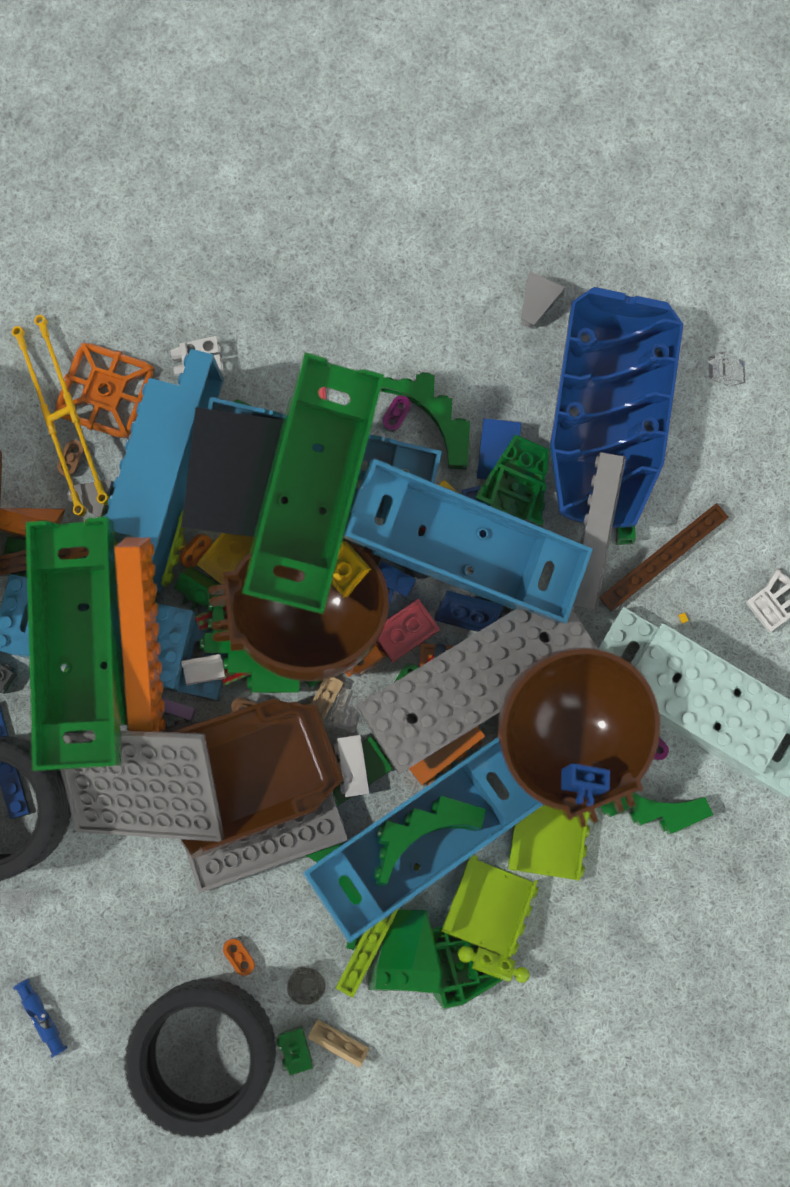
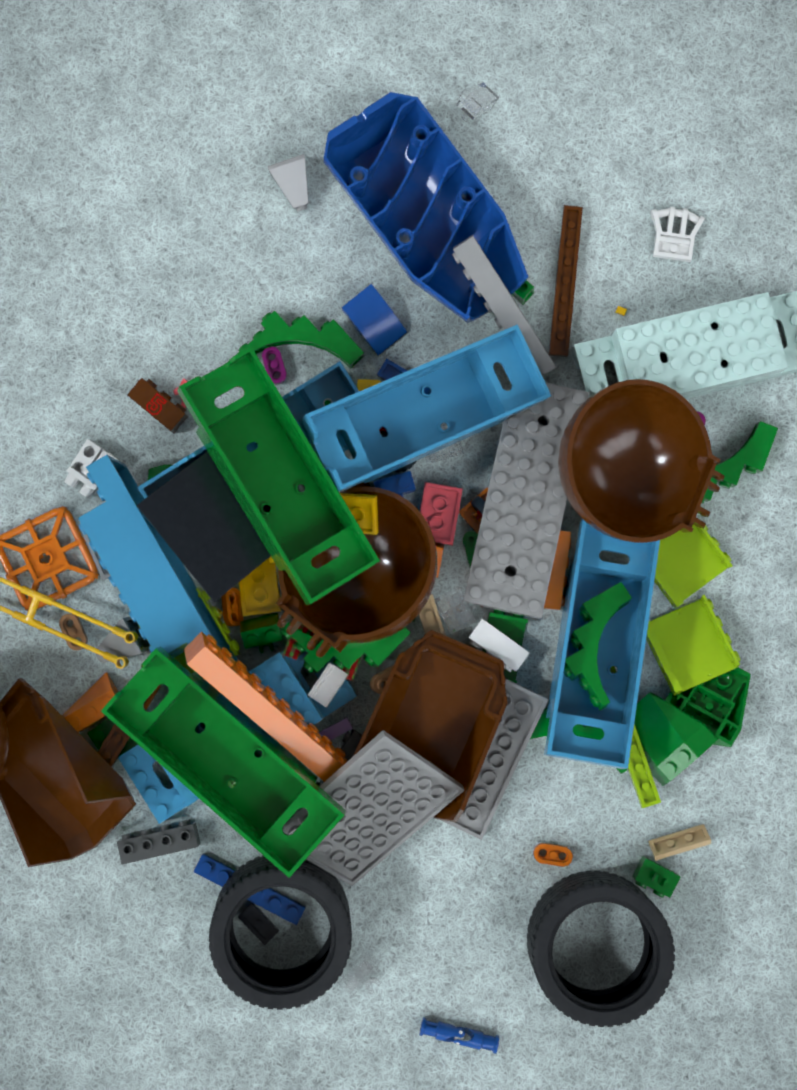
camera: 40 degrees left, 5 degrees up
(287, 359) = (158, 404): none -> reddish brown brick
(303, 982) = (619, 827): clear smoke piece -> none
(467, 611) = (470, 457): dark blue plate -> none
(493, 964) = (732, 681): lime plate -> none
(518, 481) = (412, 329): green wedge -> none
(586, 781) = (676, 493): blue brick -> none

